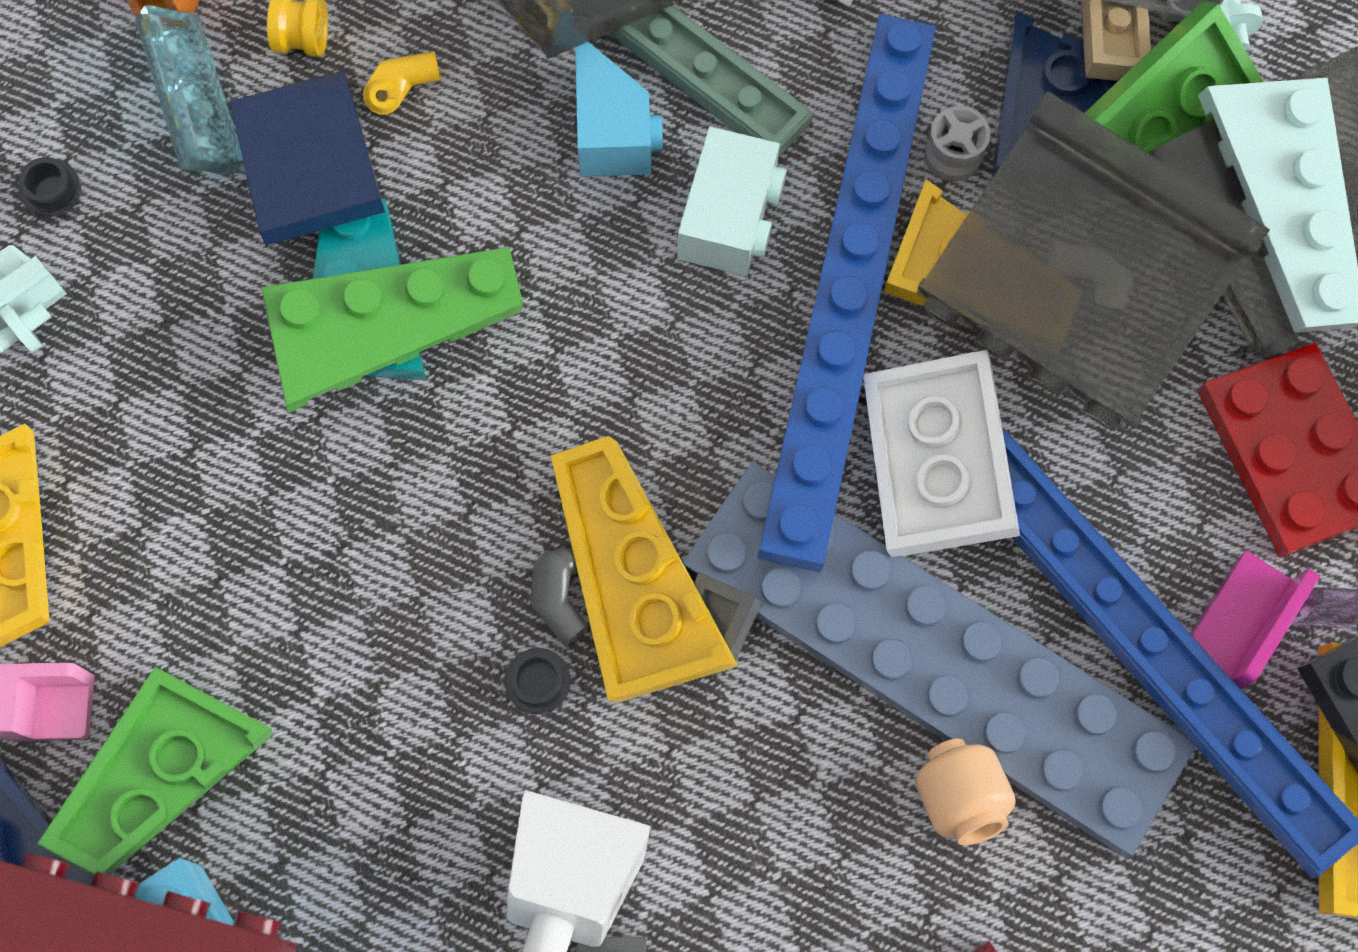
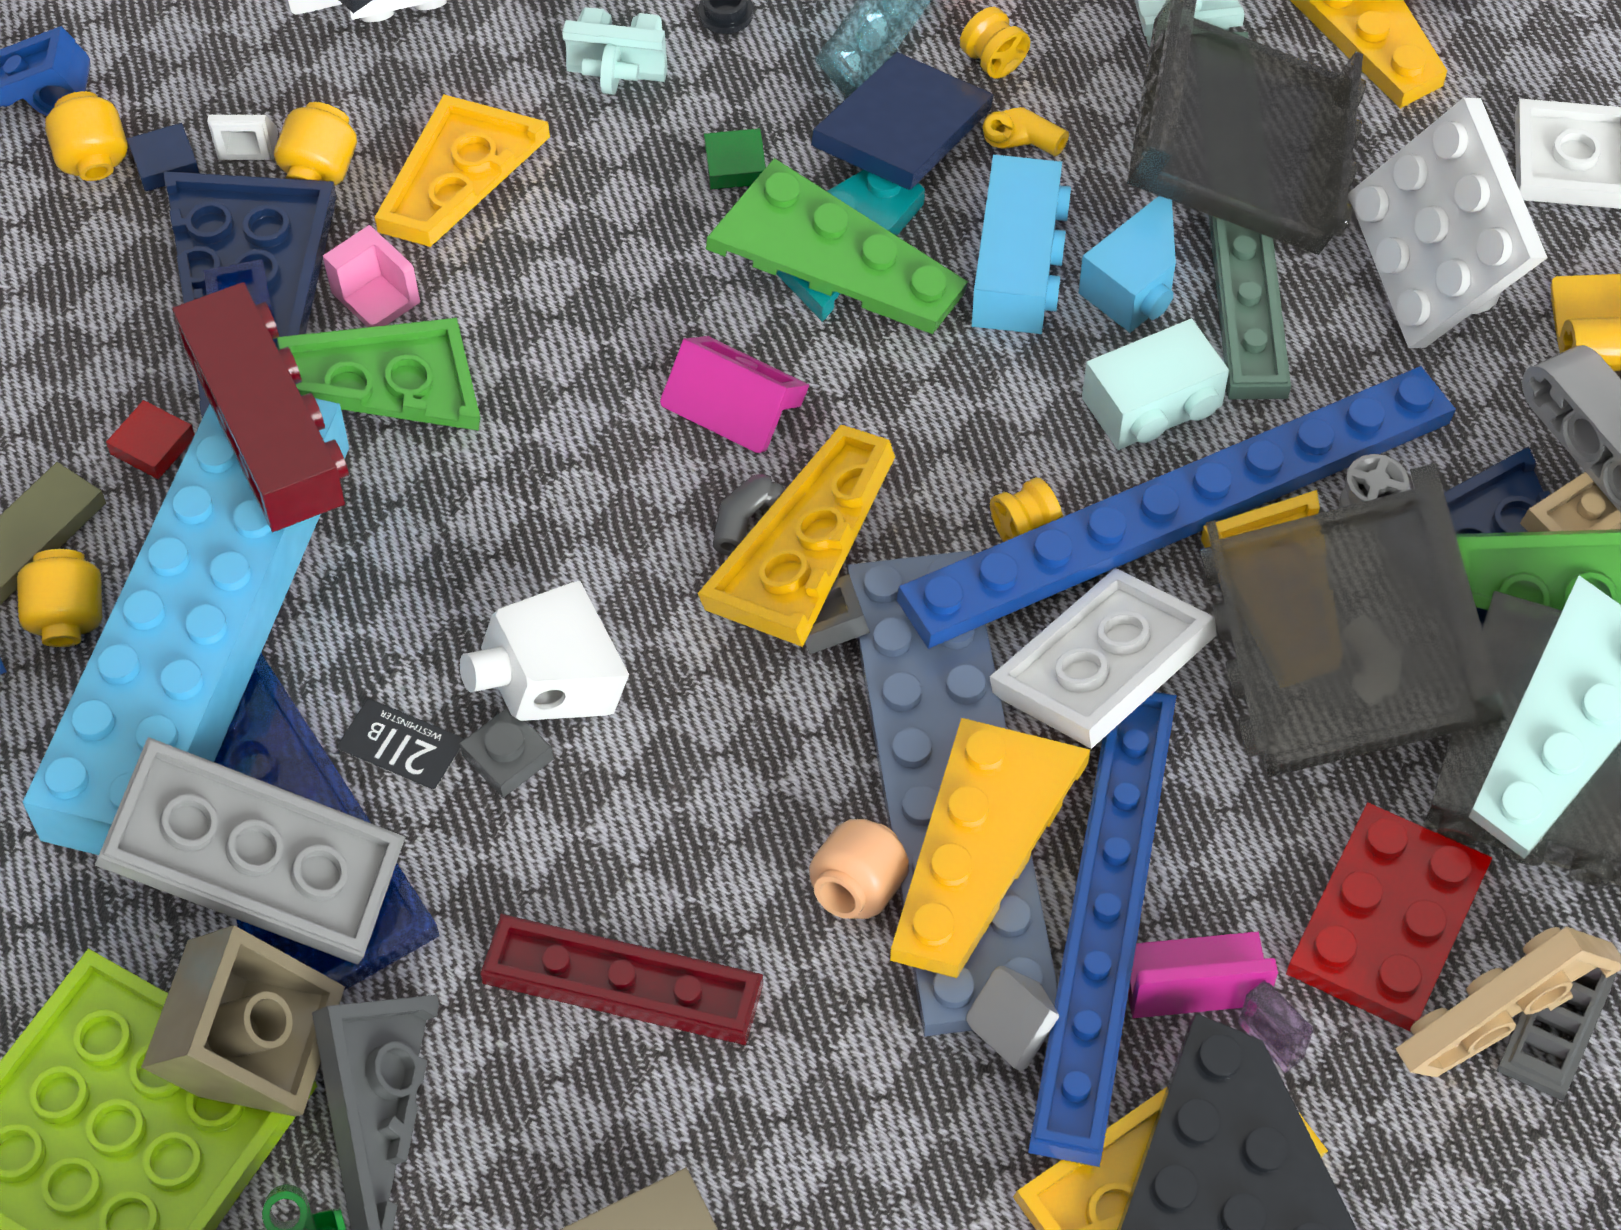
camera: 50 degrees right, 15 degrees down
(206, 309) = (734, 157): none -> green tile
(435, 508) = (730, 392): none -> dark pink panel
(508, 178) = (1020, 245): none -> medium azure brick
(537, 681) = (670, 545): black plate -> none
(760, 394) = (1025, 509): none -> yellow wheel
(1020, 676) = (980, 836): none -> yellow wing
(1191, 789) = (1012, 1016): none -> light grey slope

